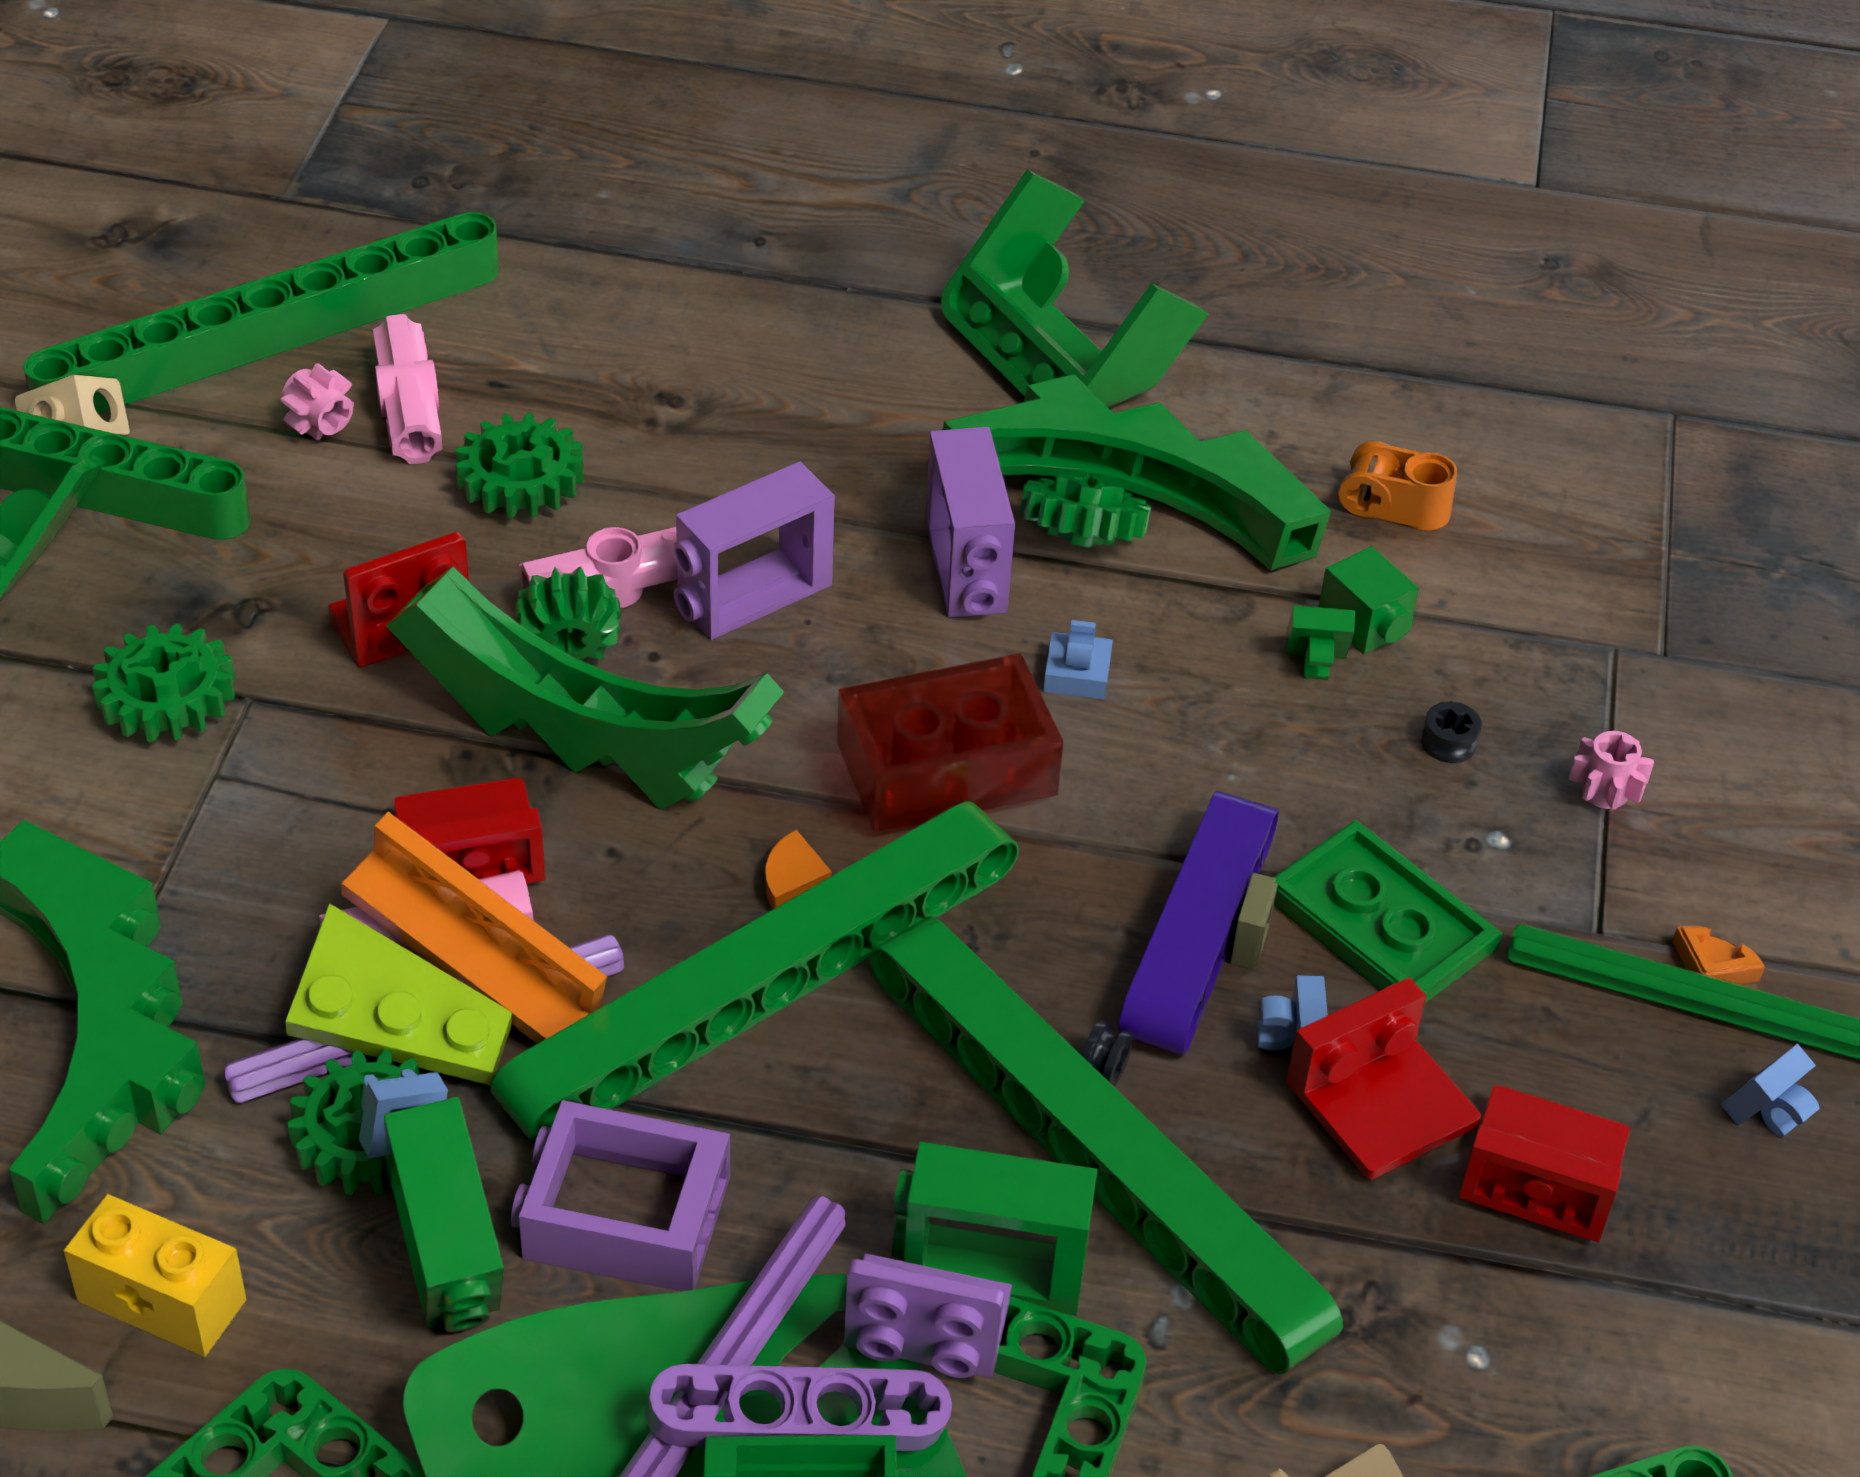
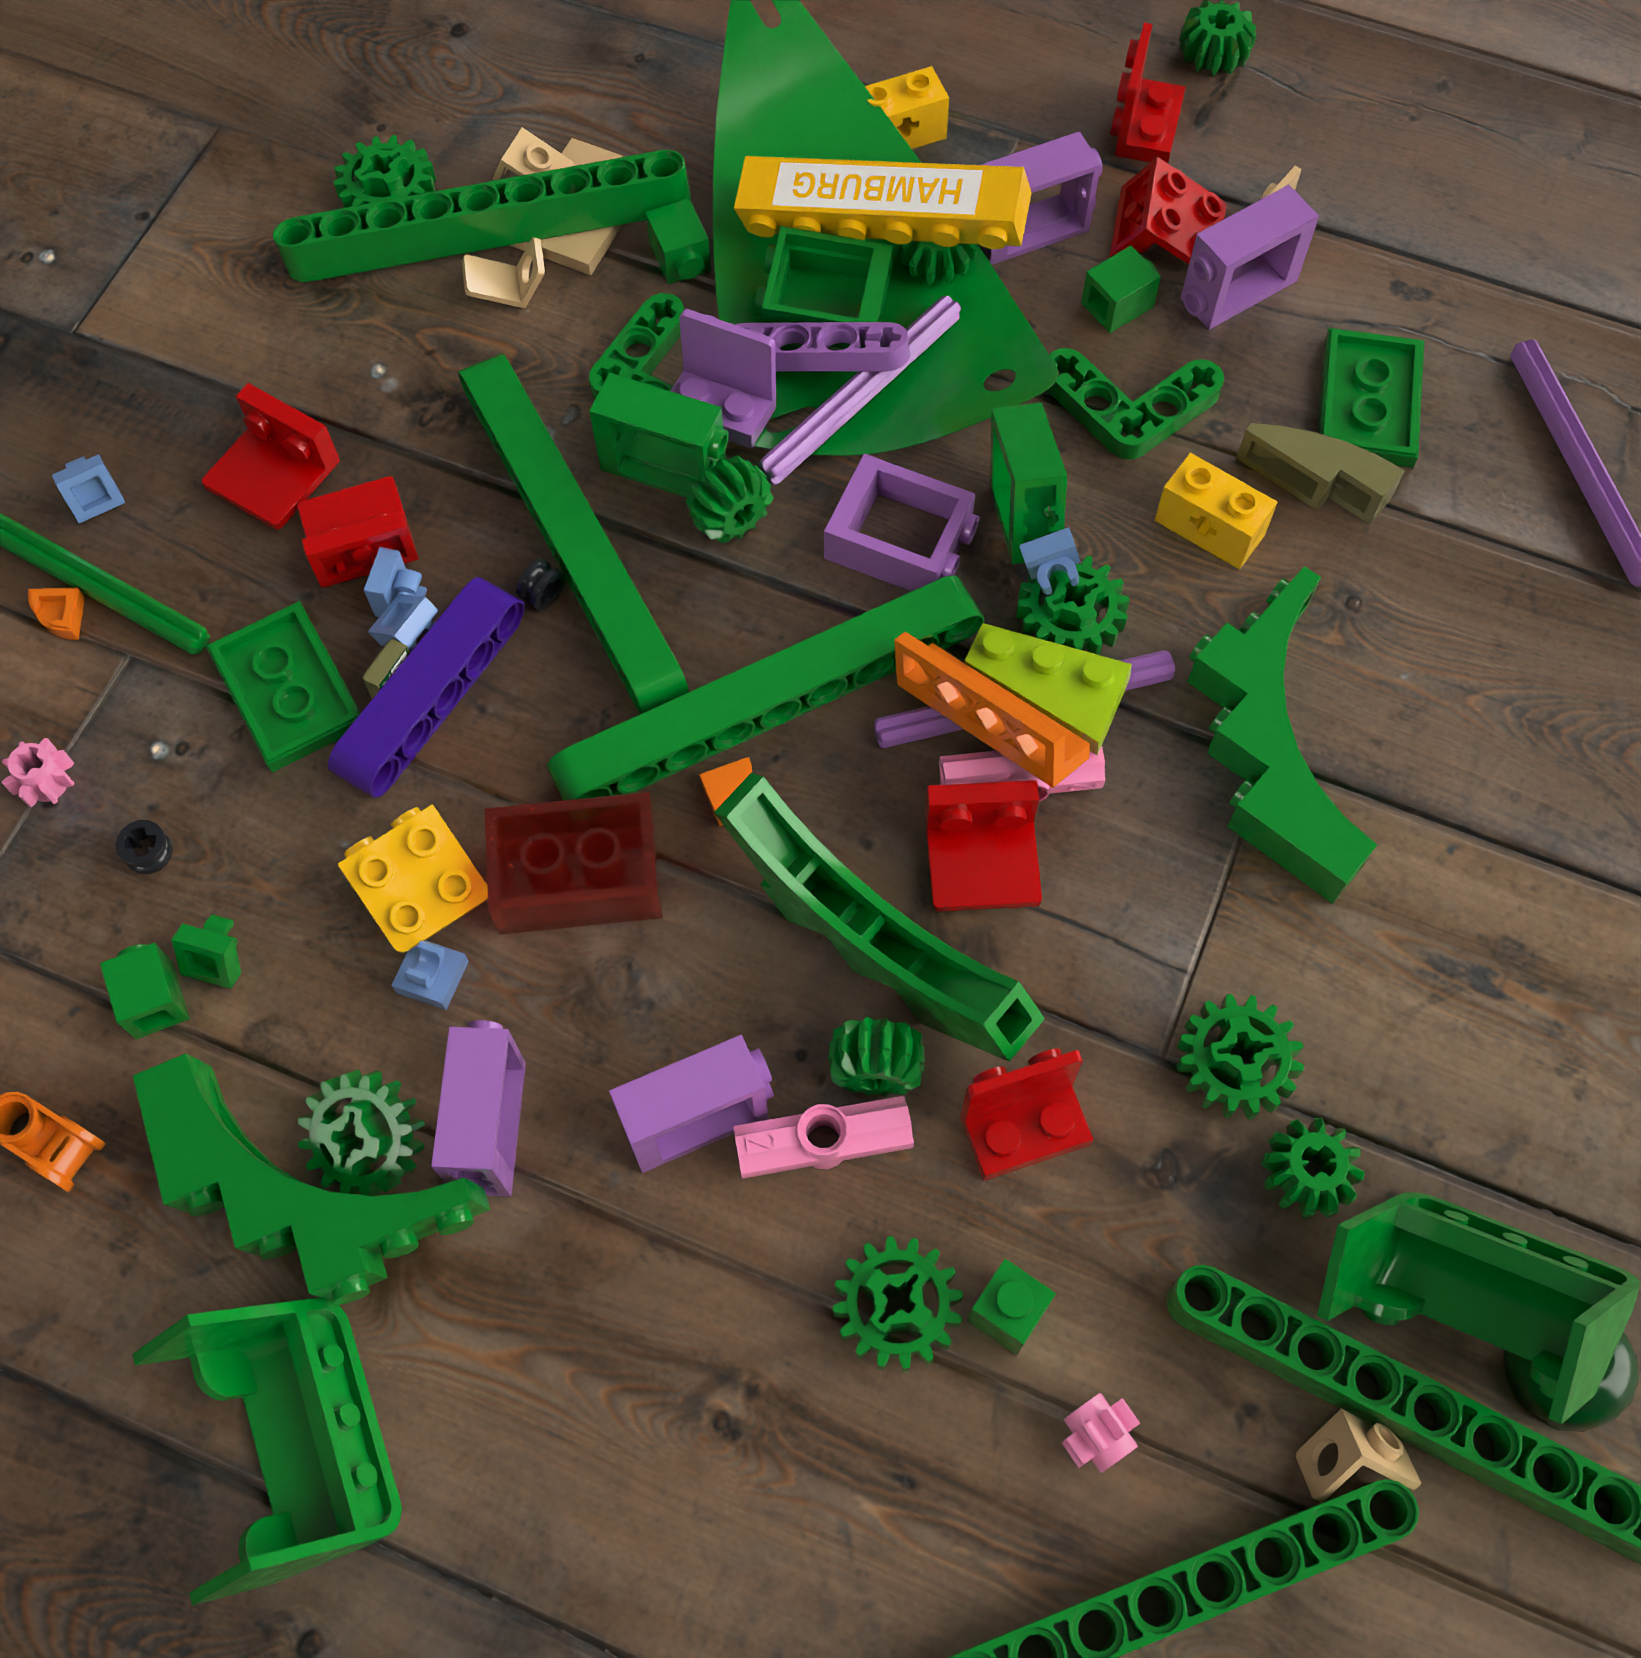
camera: 165 degrees left, 20 degrees up
(91, 602) = (1332, 1181): none -> green gear
(407, 389) = (1005, 1454): bright pink piece -> none
(407, 468) = (1010, 1306): none -> green brick
(867, 1167) = (729, 499): none -> green gear
(1144, 715) = (414, 878): none -> yellow bracket
(1258, 968) = (404, 620): none -> medium blue tile

